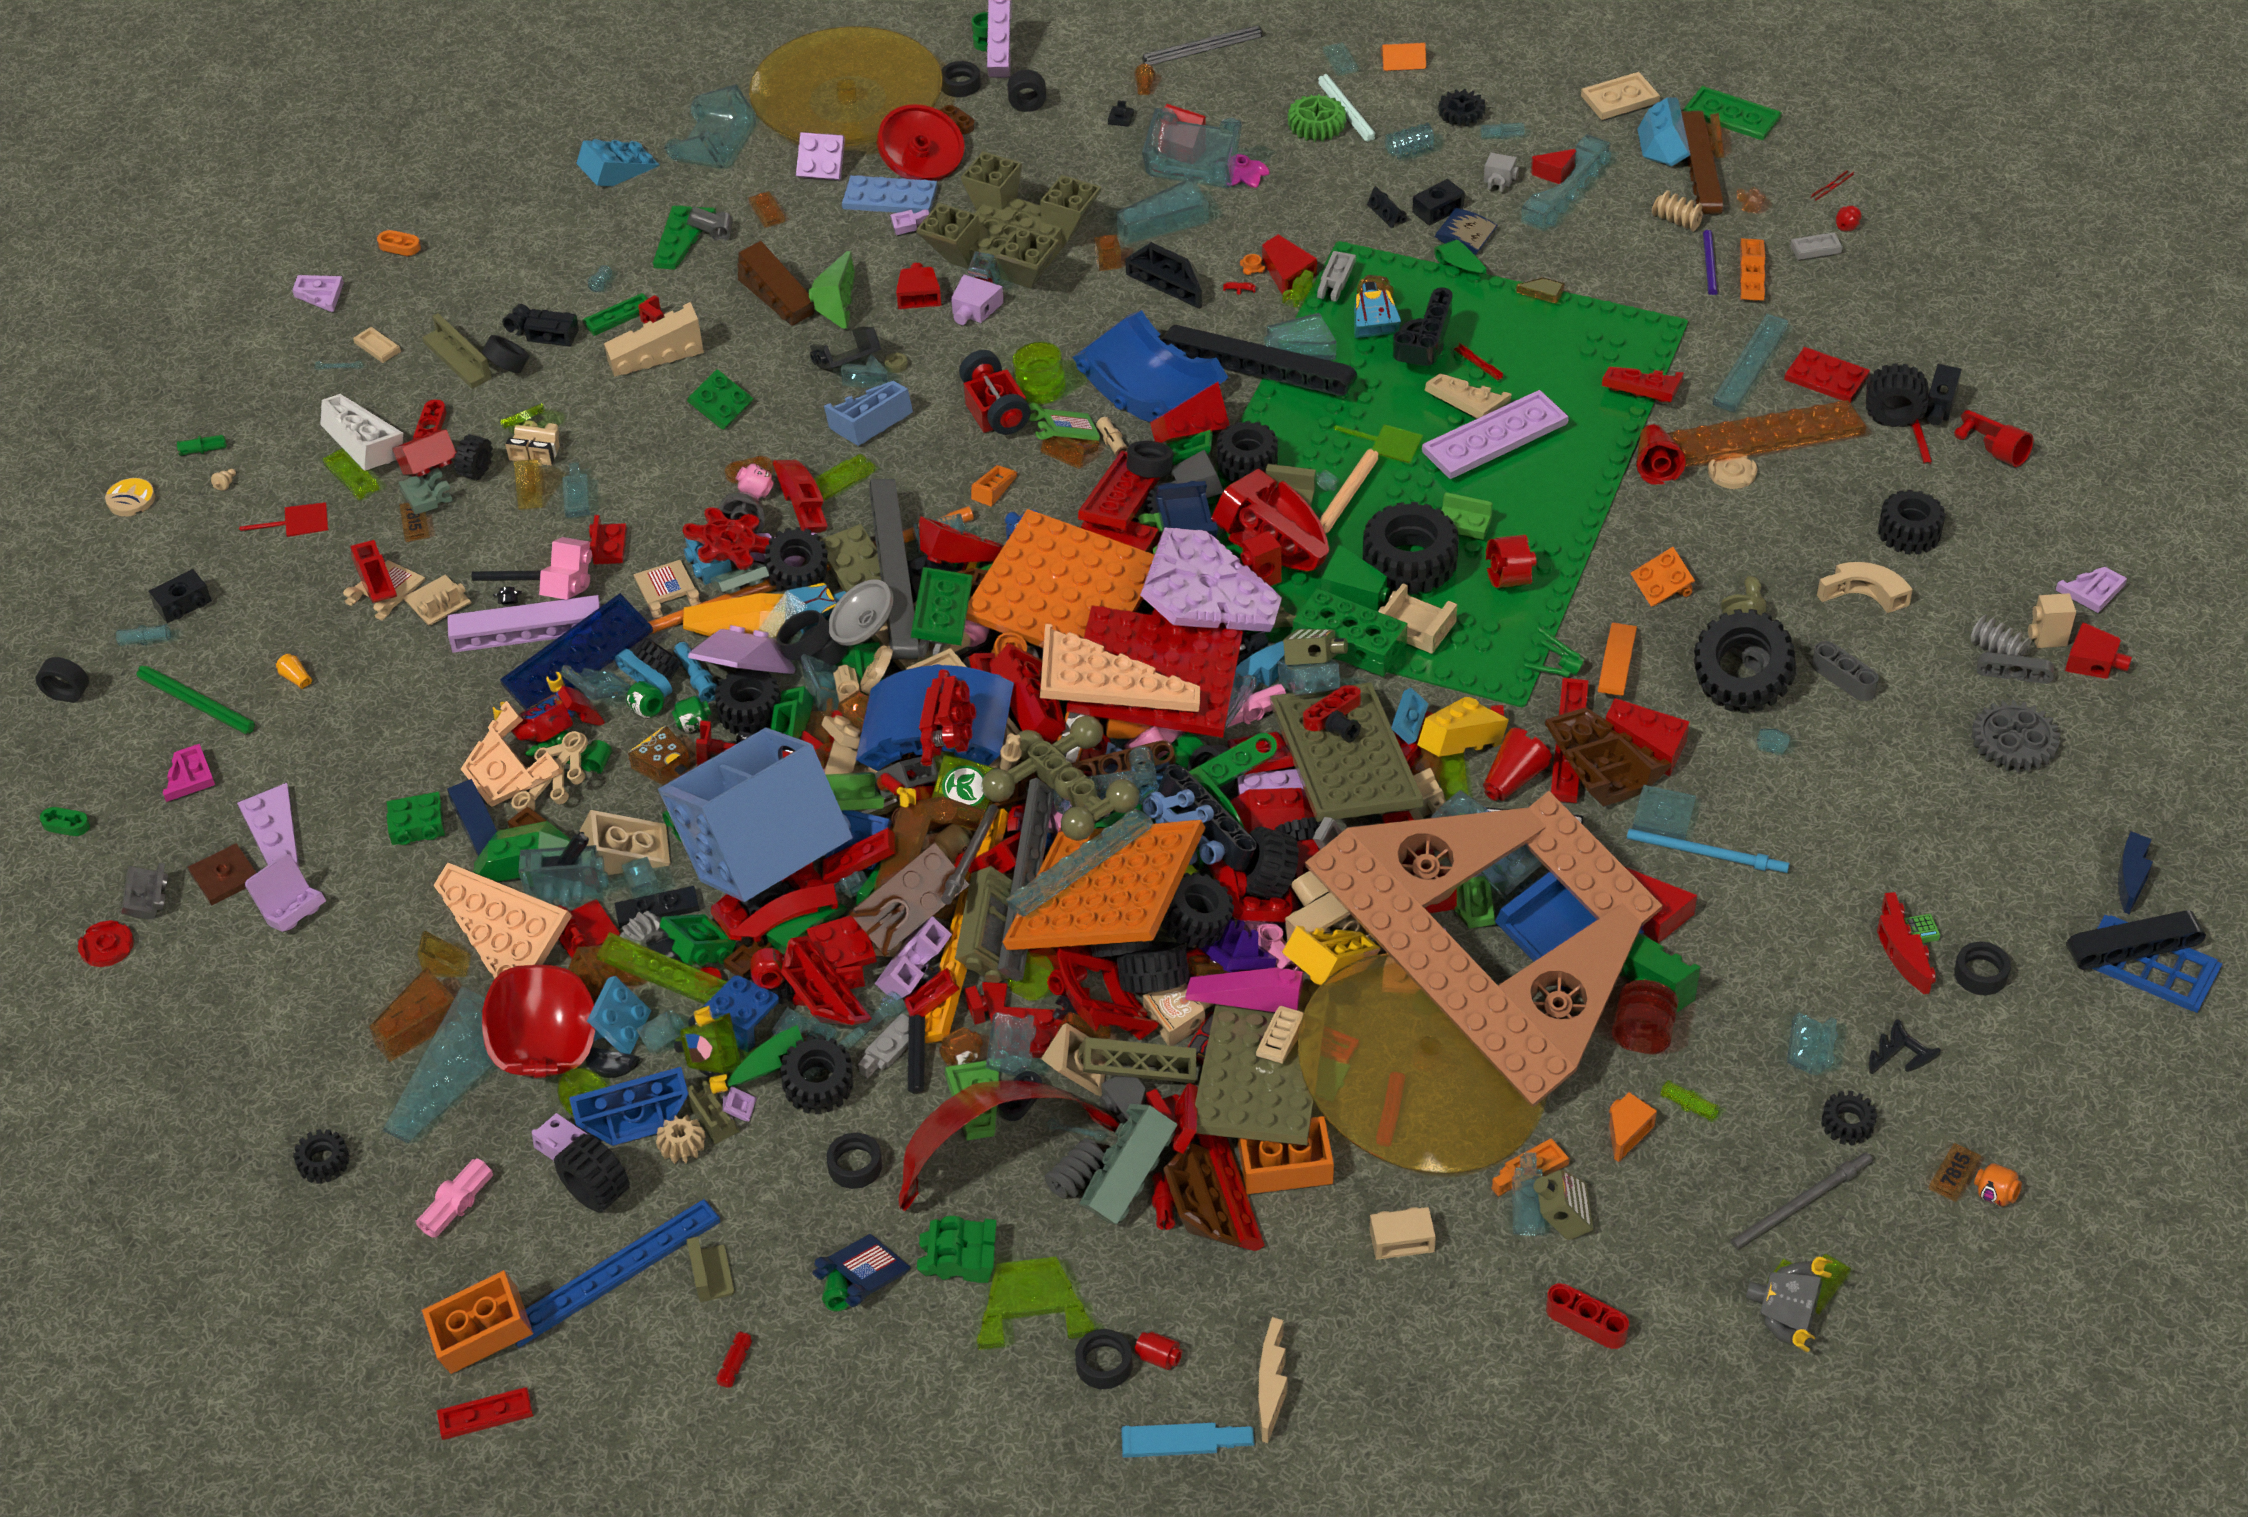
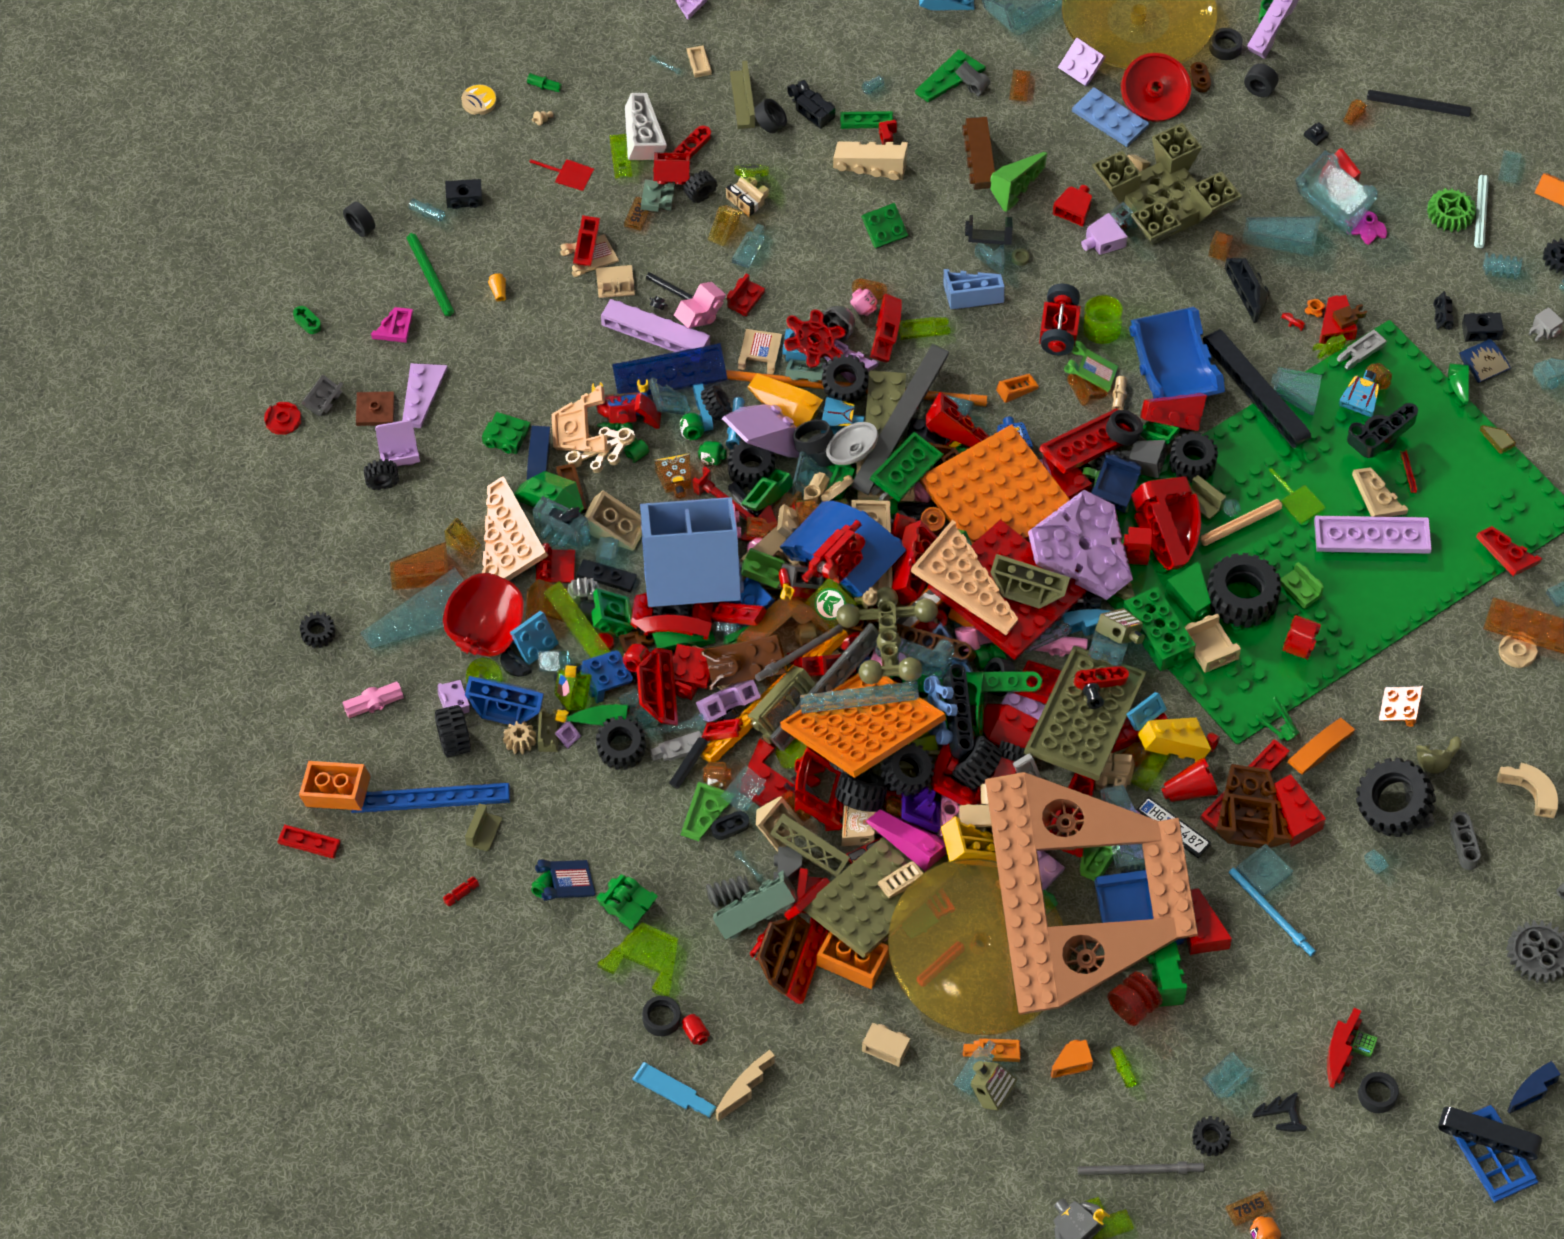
camera: 30 degrees right, 10 degrees up
(286, 937) = (381, 474): none -> black tyre
(785, 609) = (813, 412): clear light blue tile -> none
(857, 1178) = (607, 823): black tyre -> none
(907, 221) = (1105, 146): lavender plate -> none
(963, 1108) = (706, 820): red piece -> none
(976, 1004) = (745, 752): red plate -> none
(1181, 644) = (1027, 582): none -> olive wedge
(1298, 251) = (1346, 316): none -> reddish brown plate
(1580, 1304) = (949, 1151): red beam -> none
(1659, 456) = (1470, 612): red cone -> none

